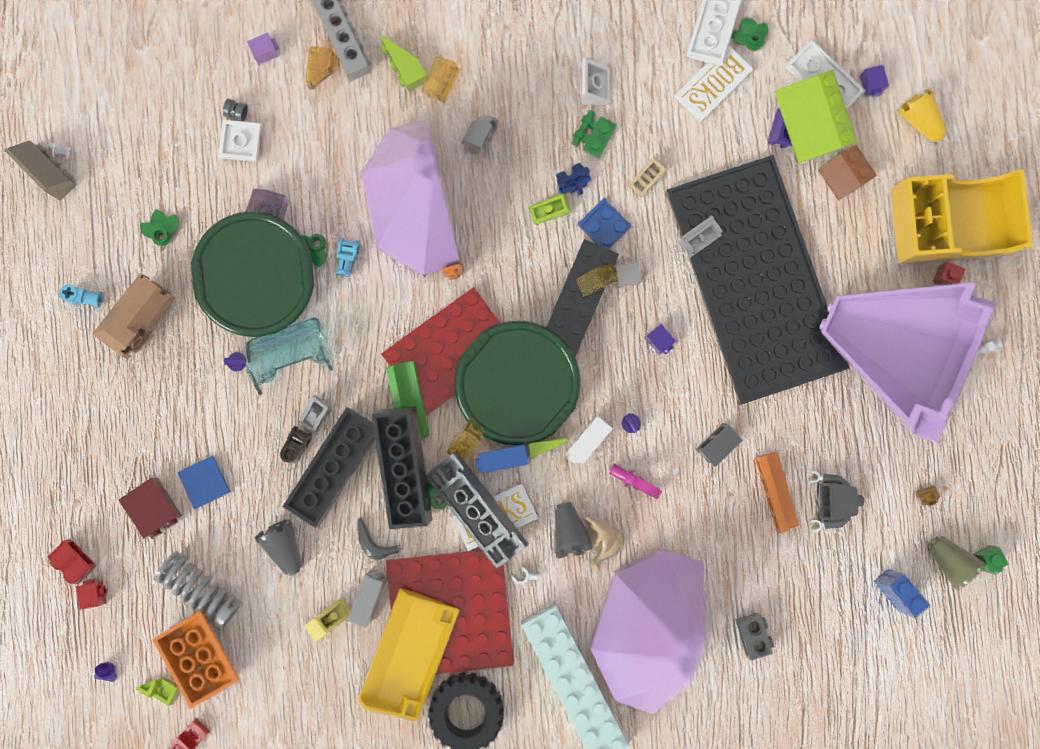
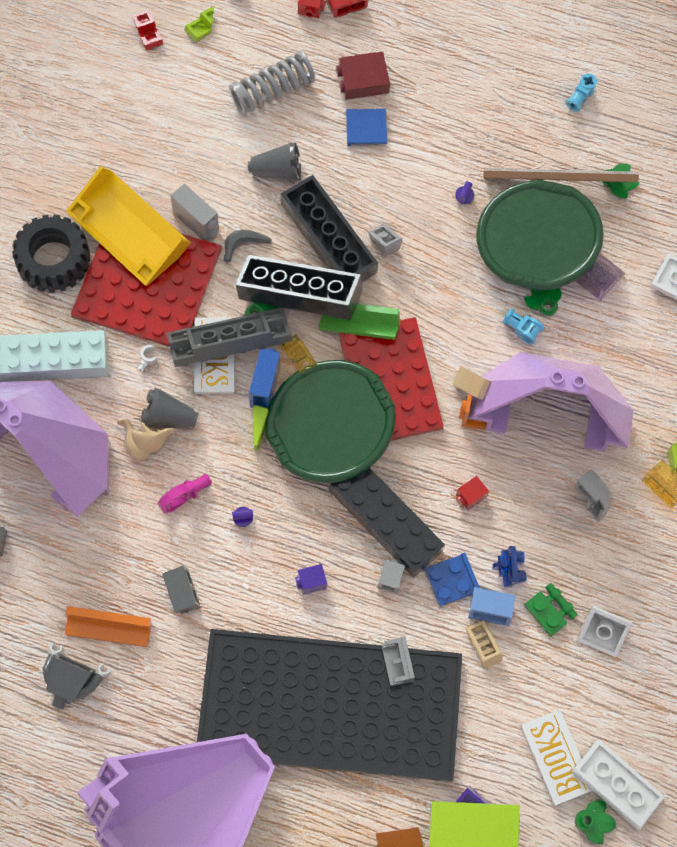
camera: 115 degrees right, 15 degrees down
(133, 315) = (544, 125): medium nougat brick -> none
(180, 280) = (569, 175): none -> medium nougat tile
(196, 659) = (213, 56): orange slope -> none
(285, 348) = (458, 241): clear light blue windscreen -> none
(295, 444) = (365, 214): dark brown piece -> none
(328, 620) = (193, 174): light yellow slope -> none
(427, 275) = (471, 383): none -> tan tile
(523, 238) = (471, 493): none -> red brick
(550, 209) = (491, 534): lime slope -> none
(588, 441) = (244, 463): white brick -> none
(597, 279) = (397, 536): clear yellow slope -> none
(614, 182) = (491, 606): none -> medium blue brick
(928, 496) = (27, 778): pearl gold plate -> none

